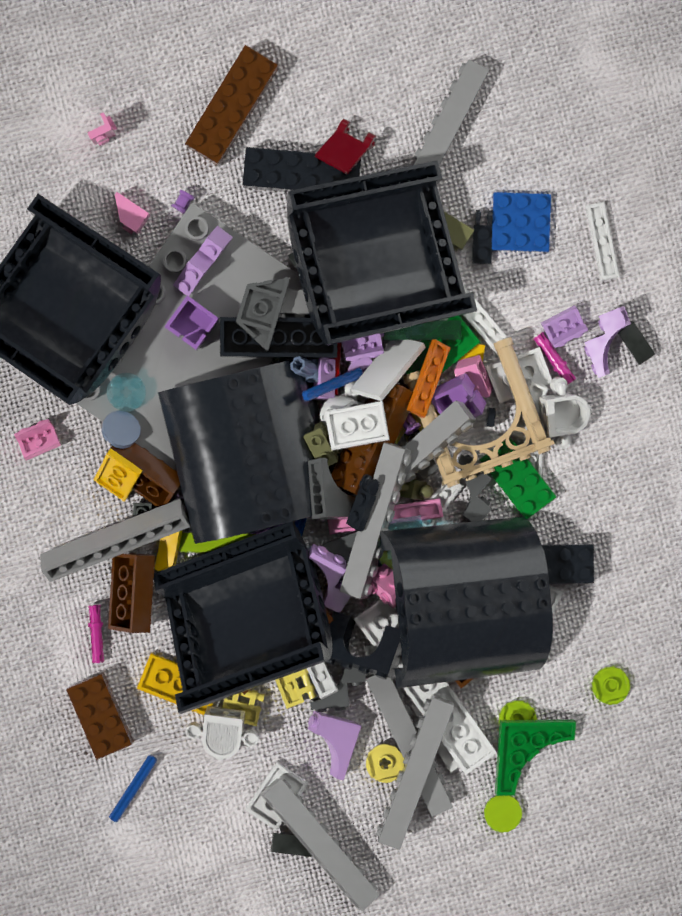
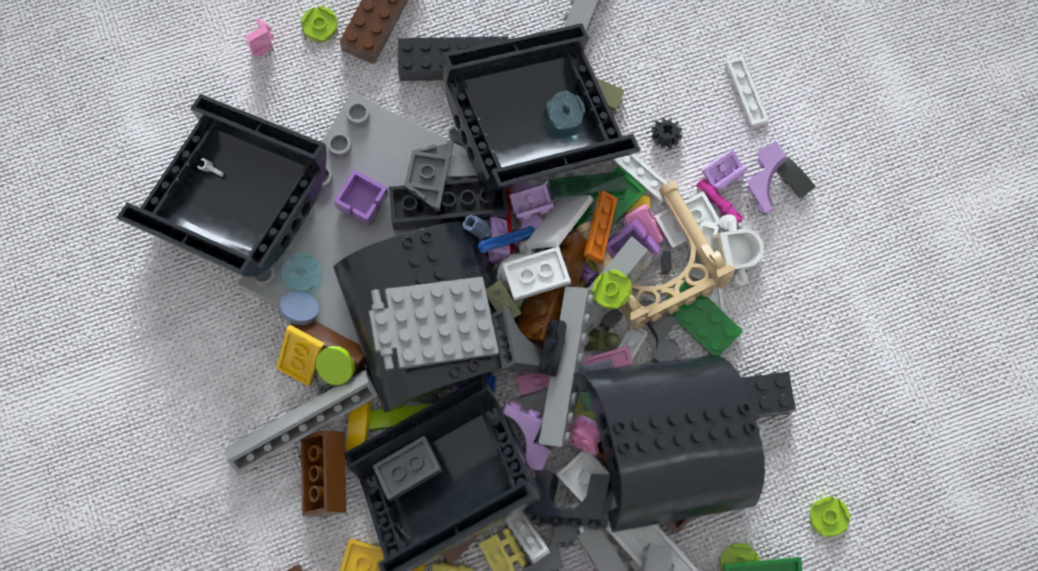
camera: 10 degrees left, 15 degrees down
(37, 439) = (215, 333): bright pink bracket -> none
(41, 267) = (208, 166): none -> white hand
(96, 633) = (289, 517): dark pink pin -> none
(130, 214) = (294, 112): bright pink slope -> none
(151, 492) = (335, 365): none -> lime tile
(165, 115) = (319, 24): none -> lime tile
(182, 201) = (342, 96): medium lavender bush -> none
(202, 260) = (365, 140): lavender arch -> none
(211, 598) = (407, 468): none -> dark grey plate
(250, 470) = (433, 323): none -> light grey plate
(343, 150) = (489, 30): dark red flag -> none
(399, 246) = (570, 101): none -> clear light blue plate
(429, 451) = (612, 289): none -> lime tile
(482, 240) = (633, 102): black hinge -> none
(518, 281) = (666, 140): none -> black gear
(521, 222) = (667, 83): blue plate -> none

